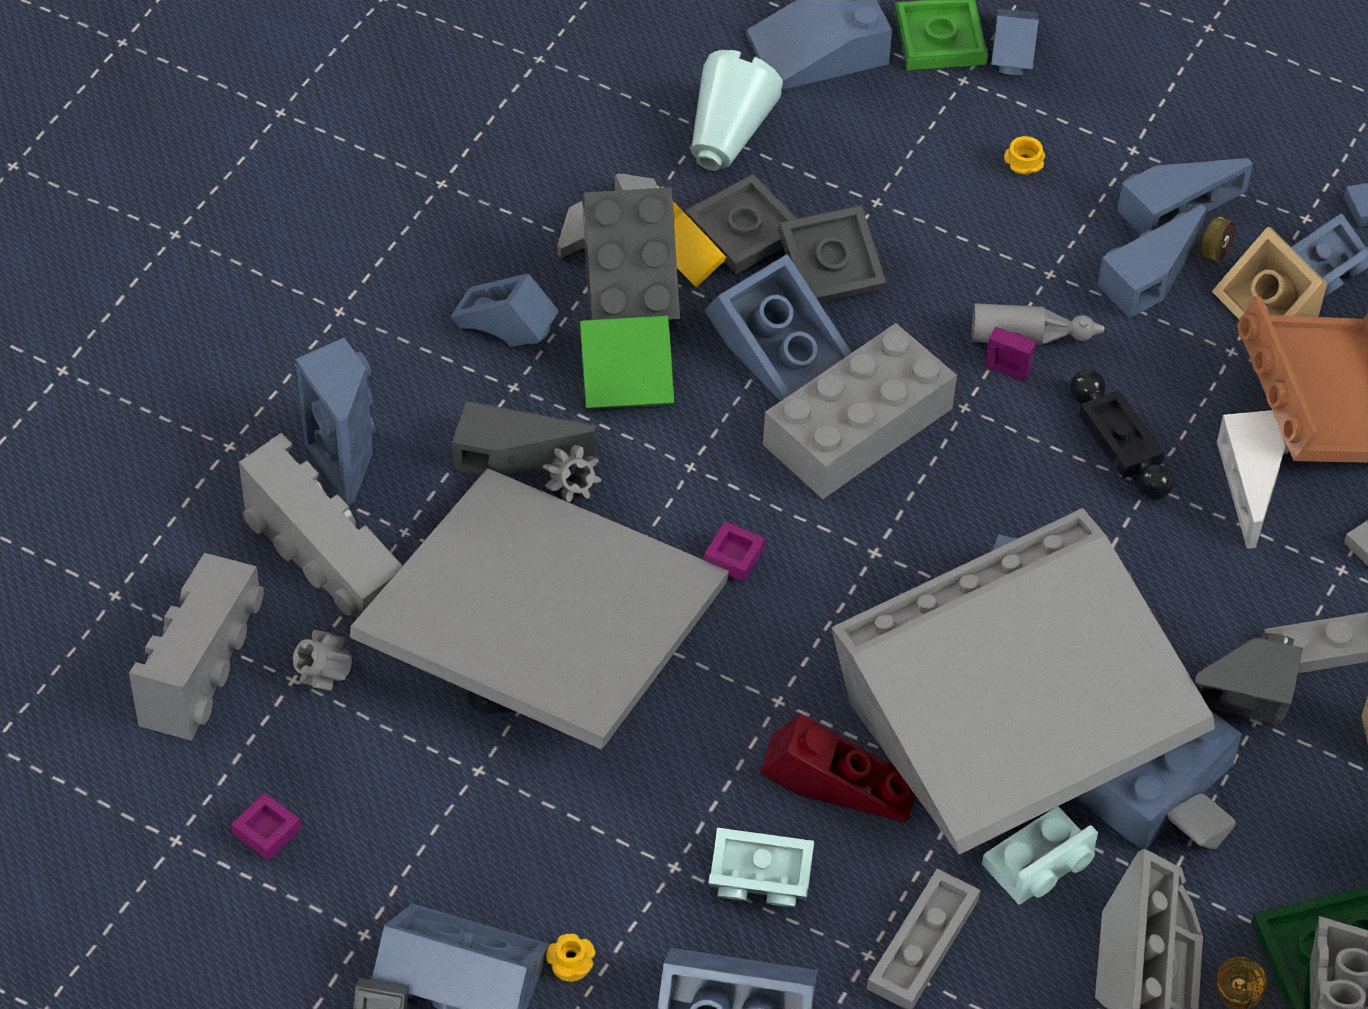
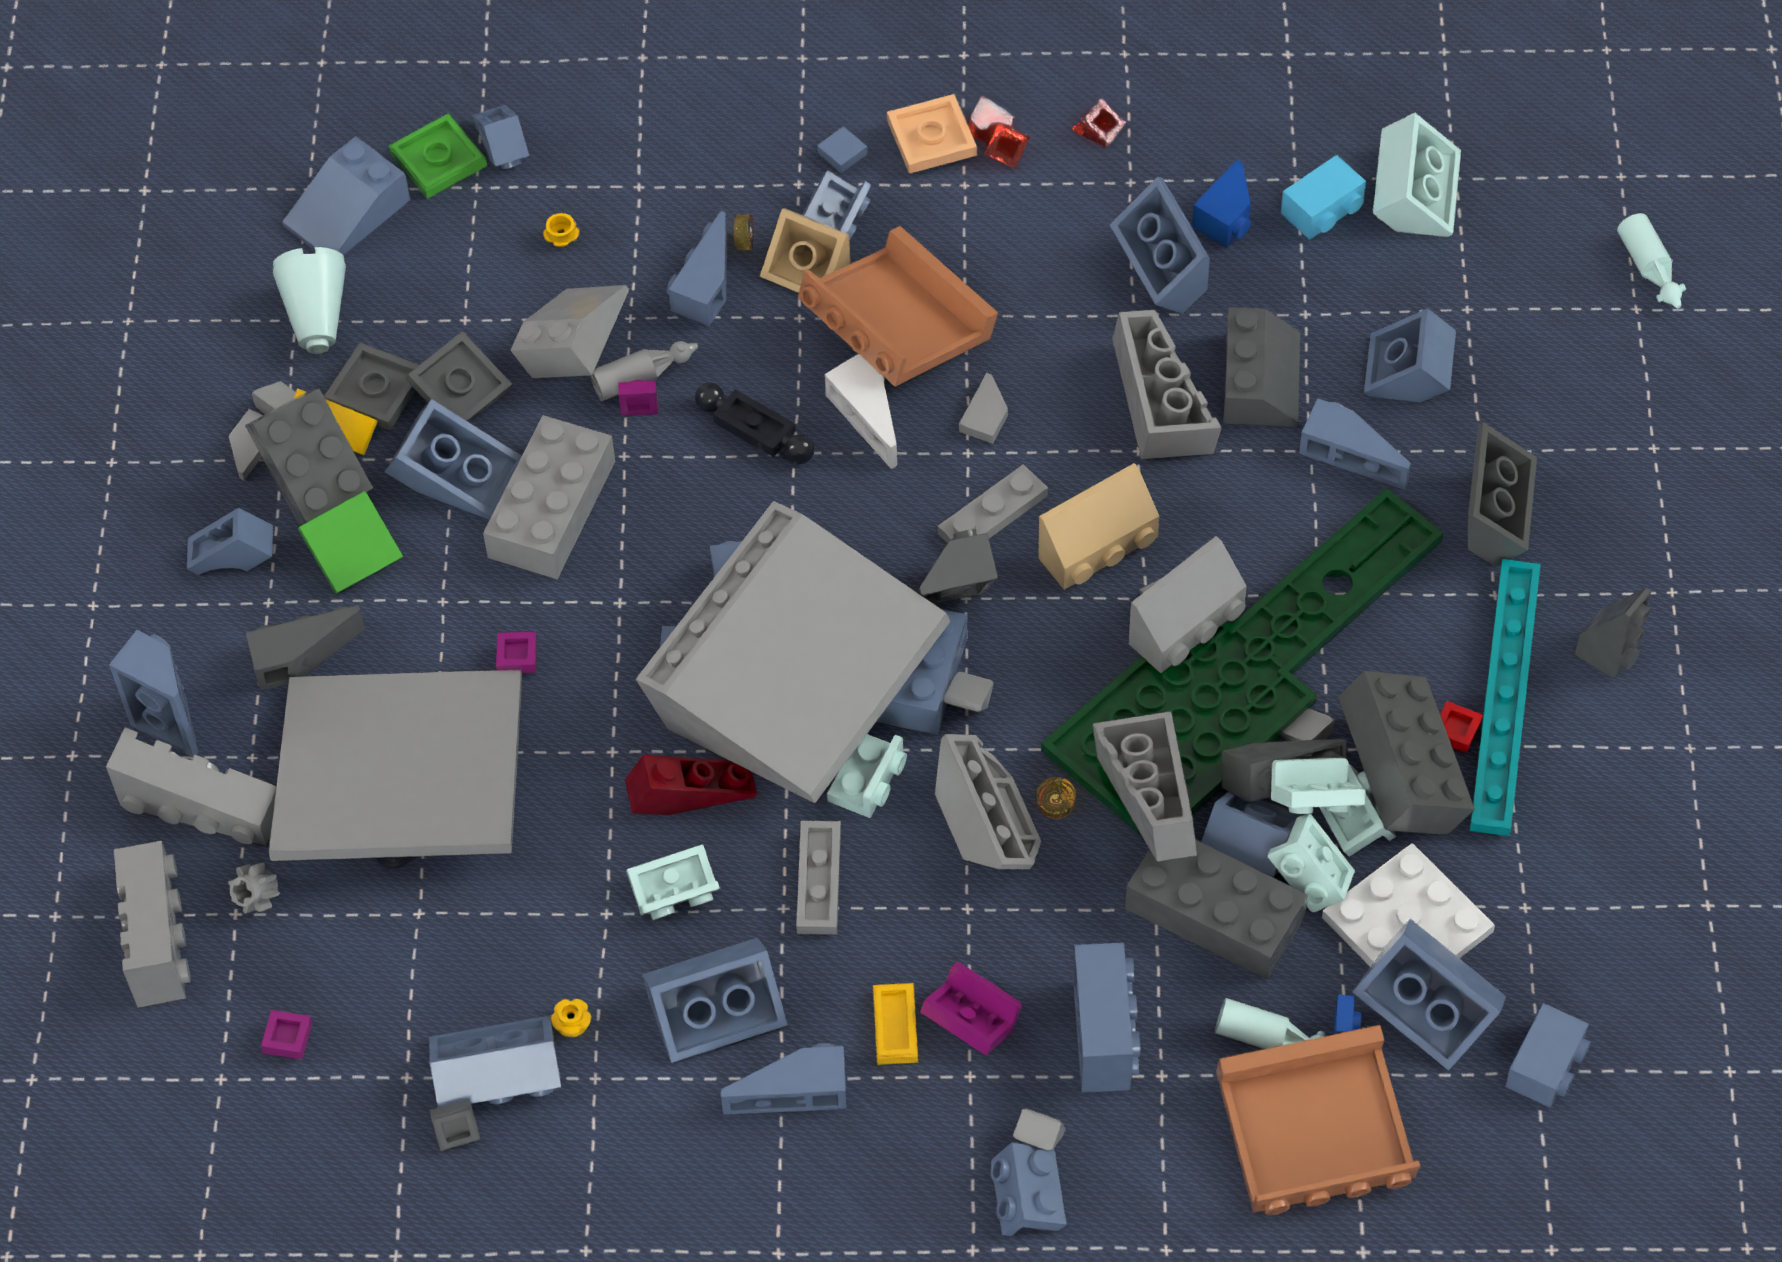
camera: 25 degrees left, 5 degrees up
(560, 471) = (358, 650): light grey gear -> none
(972, 256) = (569, 332): none -> light grey slope
(1166, 190) = (688, 210): sand blue slope -> none

